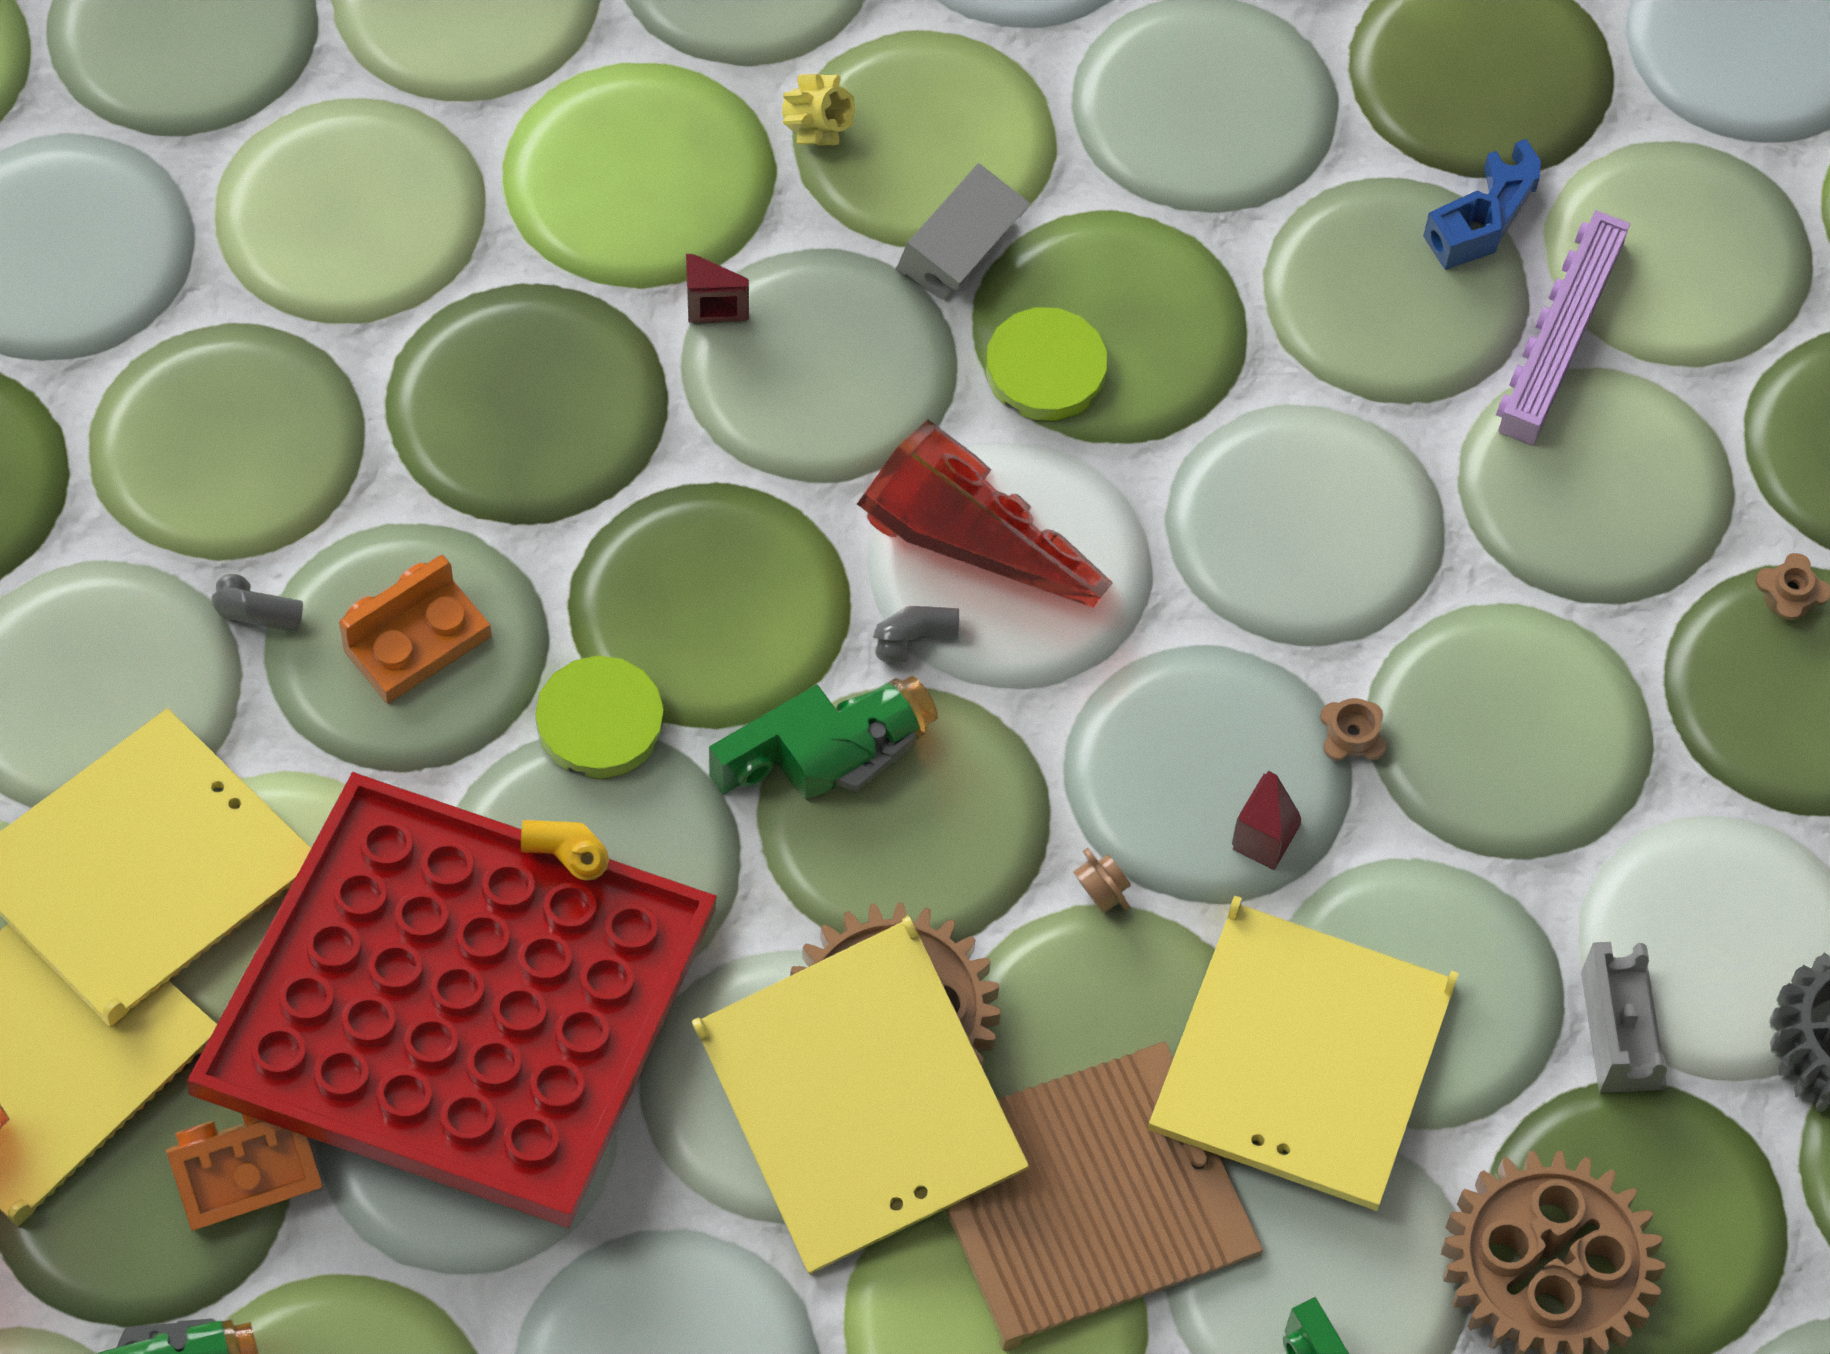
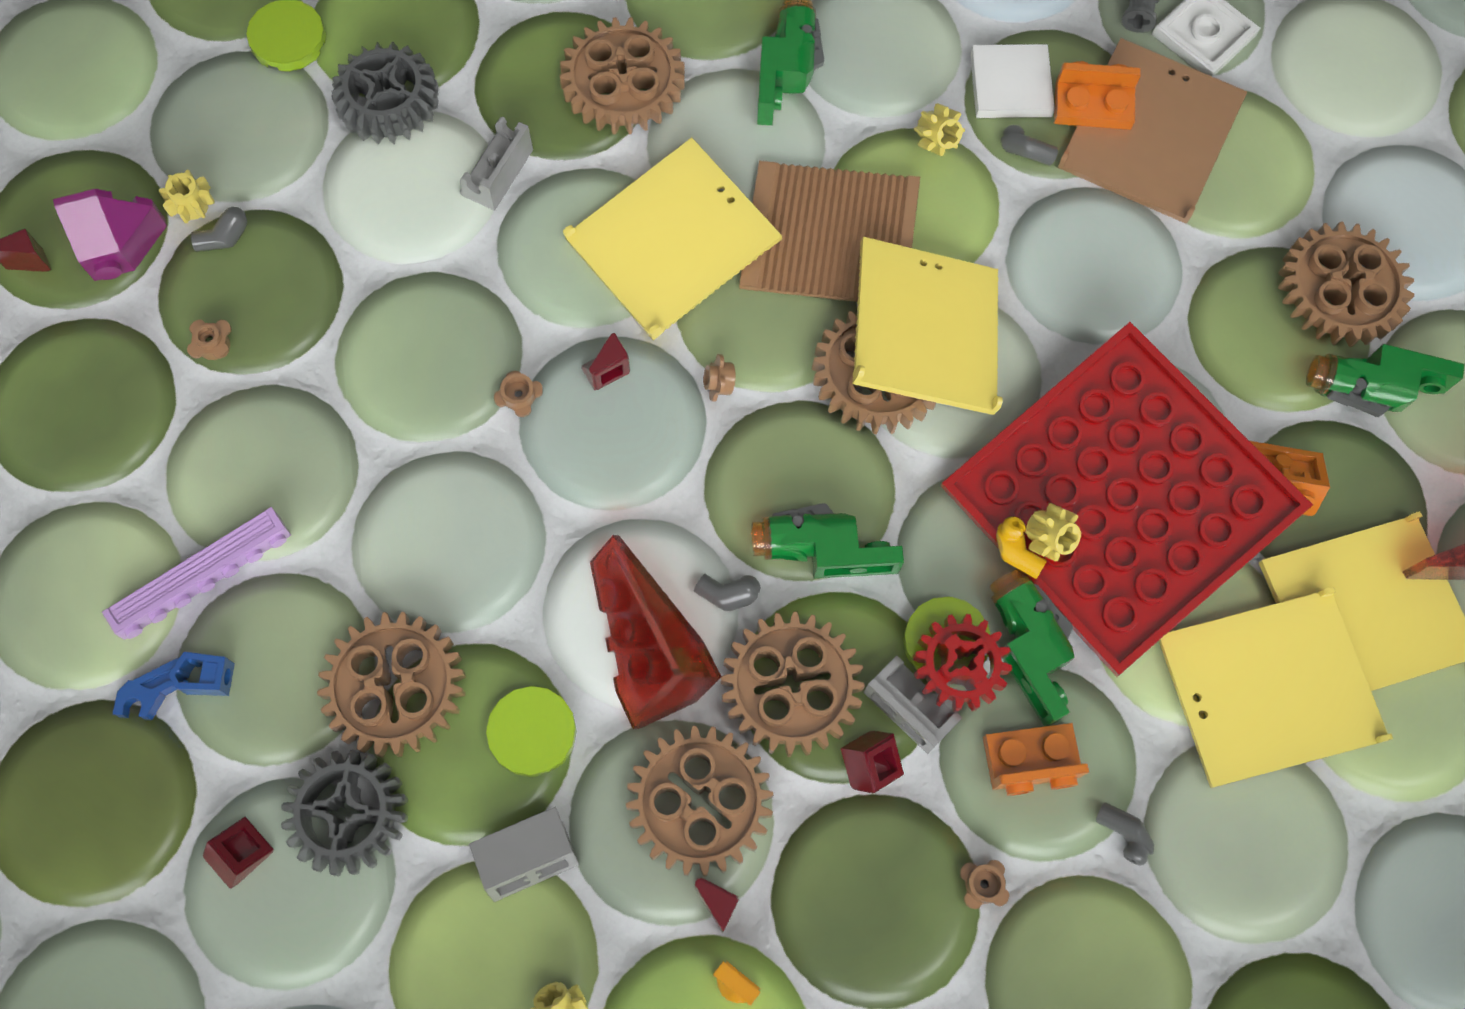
camera: 150 degrees left, 10 degrees up
(400, 453) = (996, 890): none -> medium nougat plate
(479, 752) = (1039, 643): none -> green plate
(531, 868) = (1053, 532): none -> light yellow gear
(578, 689) = (971, 677): none -> red gear
(601, 611) = (902, 700): none -> light grey hinge
(615, 529) = (872, 761): none -> dark red slope
(640, 228) = (735, 985): none -> light orange tile
(766, 558) = (802, 722): none -> medium nougat gear
(798, 381) = (727, 770): none -> medium nougat gear
(1183, 195) = (343, 832): none -> dark grey gear
(1242, 322) = (352, 691): none -> medium nougat gear
(1281, 96) = (236, 852): none -> dark red slope

